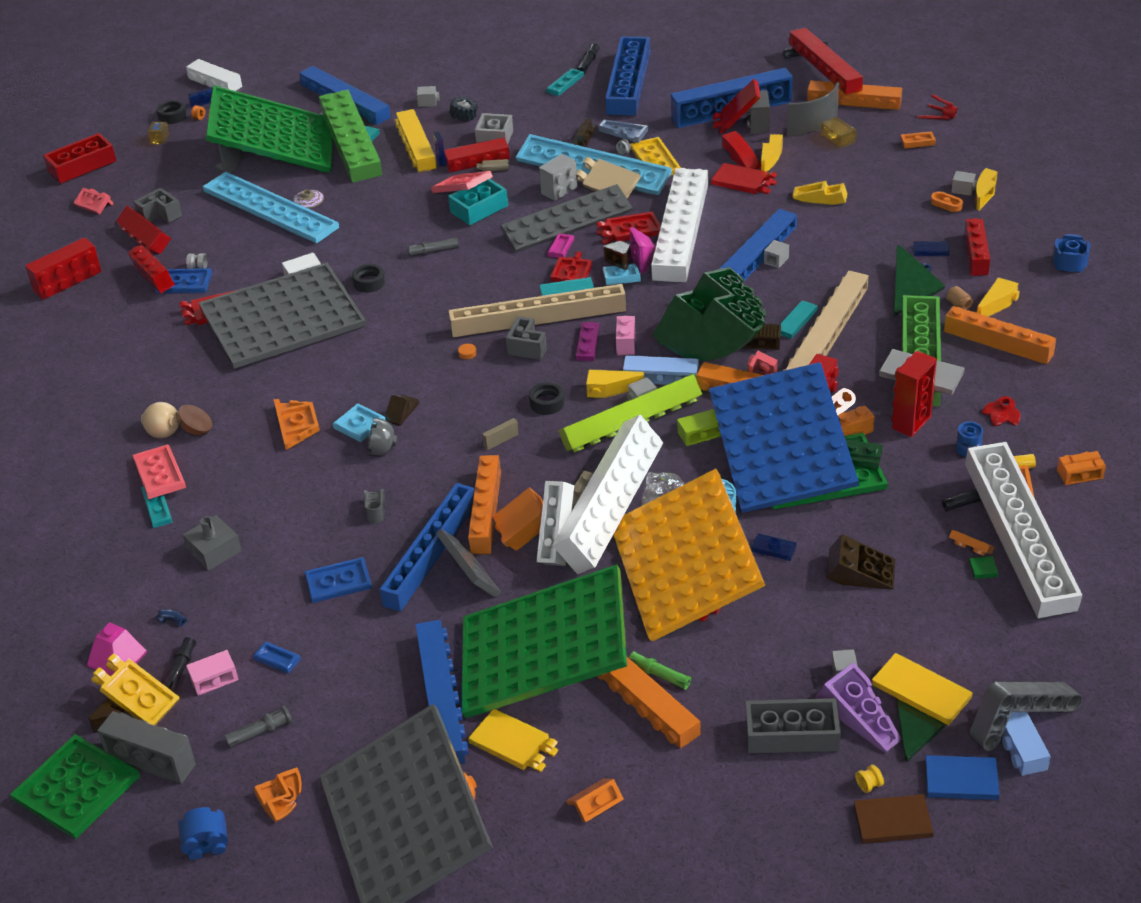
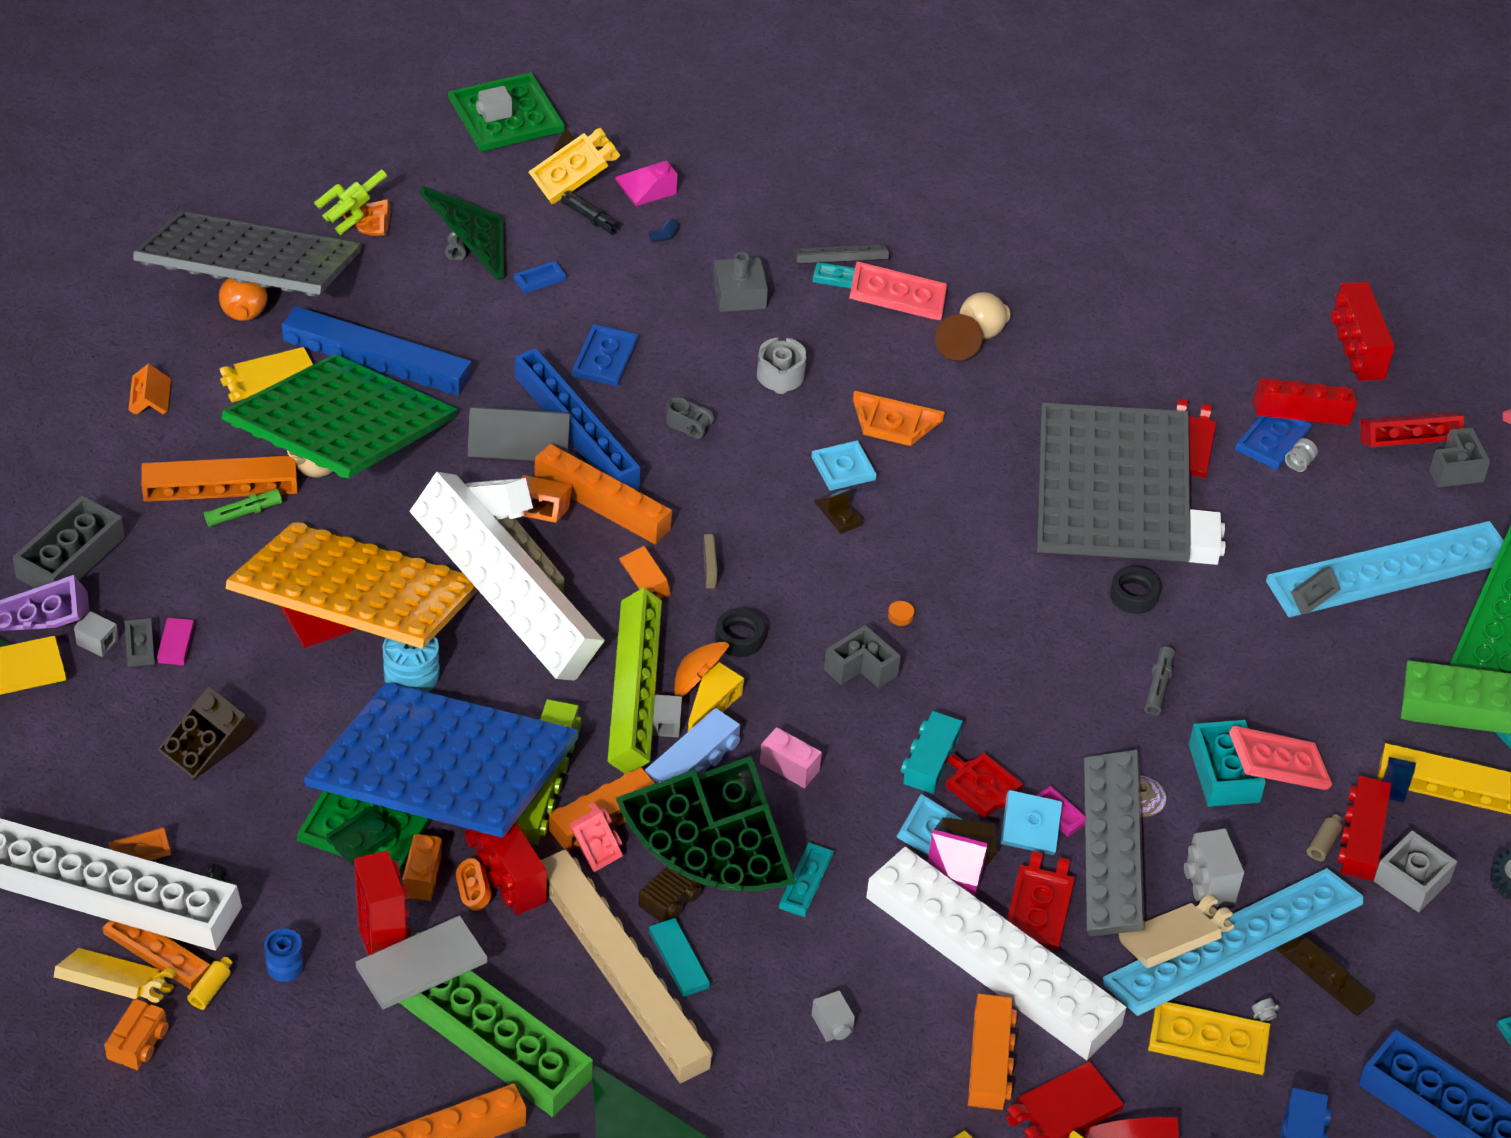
camera: 115 degrees right, 5 degrees up
(83, 778) = (494, 104): none -> light grey brick
(134, 516) = (840, 253): none -> dark grey tile
(147, 747) = (493, 149): dark grey brick -> none
(202, 832) = (363, 149): blue brick -> none
(212, 672) = (556, 225): bright pink brick -> none
(254, 712) = (474, 225): none -> dark green tile
(283, 796) = (349, 200): none -> lime plant
(287, 482) = (781, 365): none -> light grey brick
(308, 198) = (1392, 620): dish -> none
(313, 212) = (1315, 590): none -> dark grey plate
(381, 437) = (790, 459): dark grey cylinder -> none
(537, 453) = (645, 572): none -> orange hinge
(541, 309) = (911, 701): tan brick -> none
(583, 244) = (1031, 822): none -> medium azure plate
(587, 341) = (821, 729): magenta plate -> none
(596, 393) = (696, 665): none -> orange brick
(624, 130) = (1311, 1035): sand blue wing -> none
(659, 484) = (481, 636): clear head -> none
(740, 204) = (990, 1052): none -> orange brick
(752, 252) = (874, 1020): blue brick -> none
(774, 547) = (312, 689): clear blue plate -> none
(804, 632) = (175, 641): none -> dark pink tile
(822, 647) = (139, 642): none -> dark grey plate
(983, 567) = (101, 835): green piece -> none
(1001, 413) = (305, 1040): red plate -> none
(1062, 495) = (114, 975): none -> yellow tile

